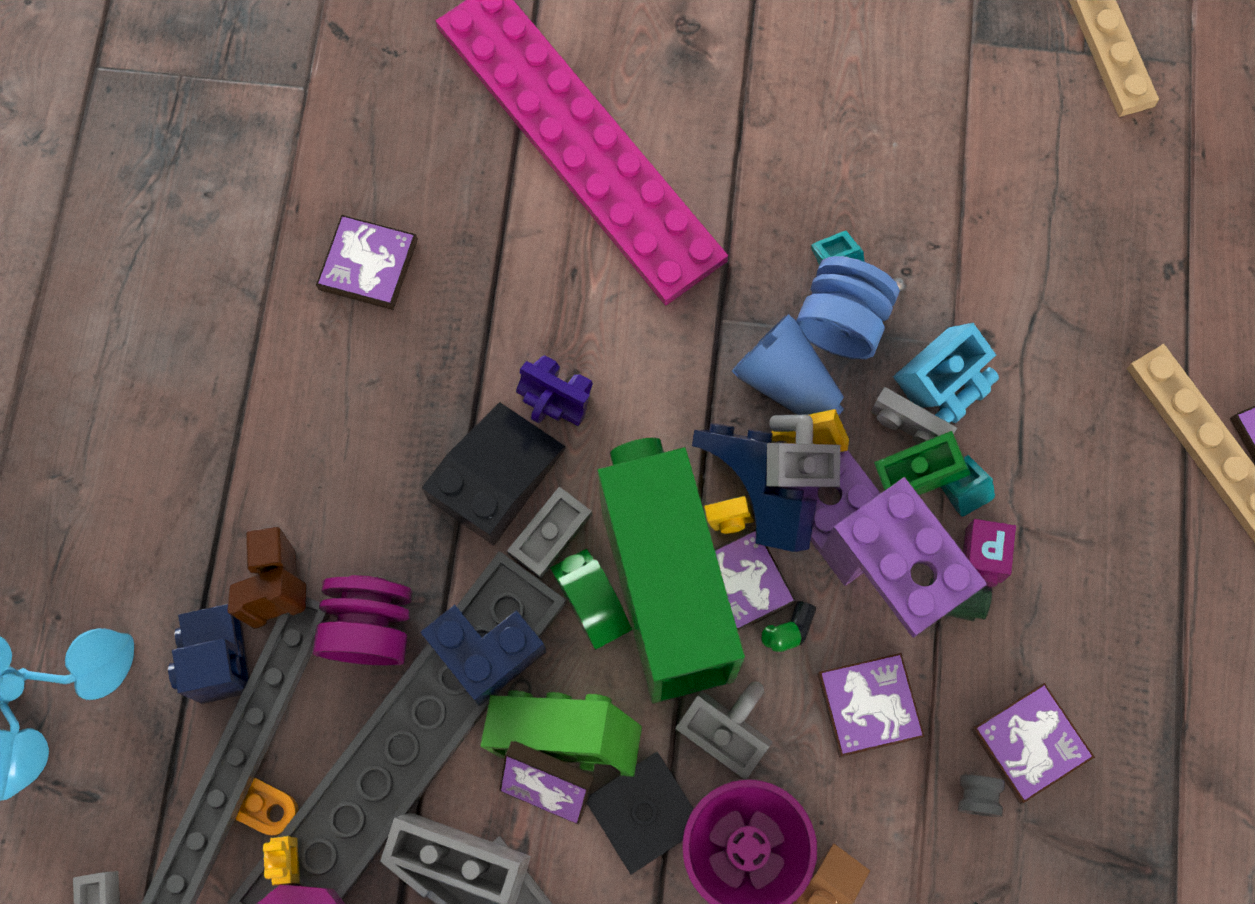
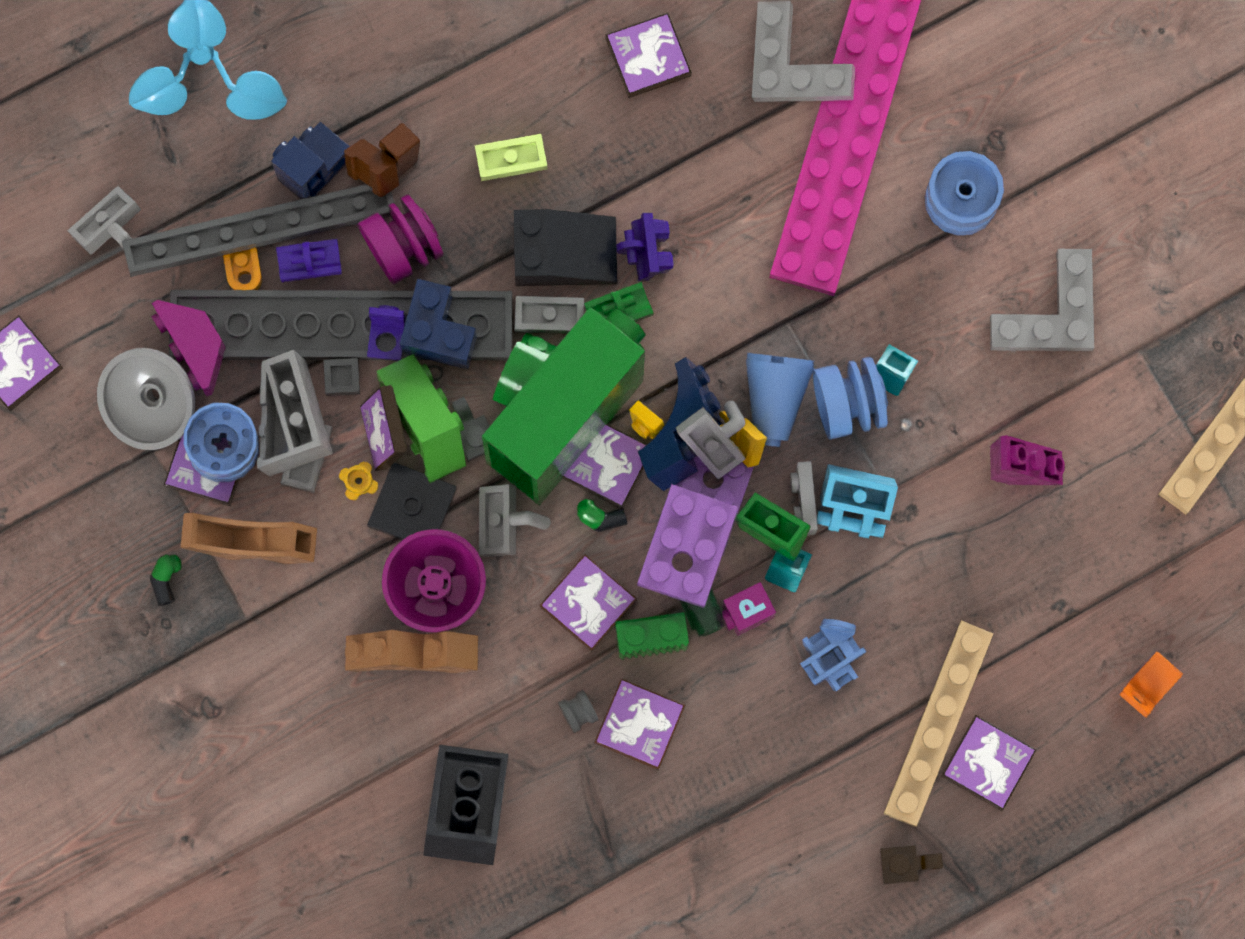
camera: 50 degrees right, 5 degrees up
(282, 860) = (219, 302): yellow plate -> none
(310, 732) = (309, 260): none -> dark purple hips
(364, 456) = (511, 157): none -> yellowish green plate
(439, 693) = (386, 320): none -> dark purple bracket
(456, 787) = (342, 377): none -> dark grey plate
(490, 162) = (778, 80): none -> light grey plate
(584, 860) = (350, 475): none -> yellow plate
(593, 454) = (629, 300): none -> green hips
(622, 688) = (473, 429): none -> dark grey plate
(721, 77) = (949, 182): none -> medium blue wheel
(909, 80) = (1062, 332): none -> light grey plate
(953, 664) = (652, 635): none -> green brick
(1017, 202) = (1025, 463): none -> magenta slope
(1081, 509) = (833, 665): none -> medium blue piece

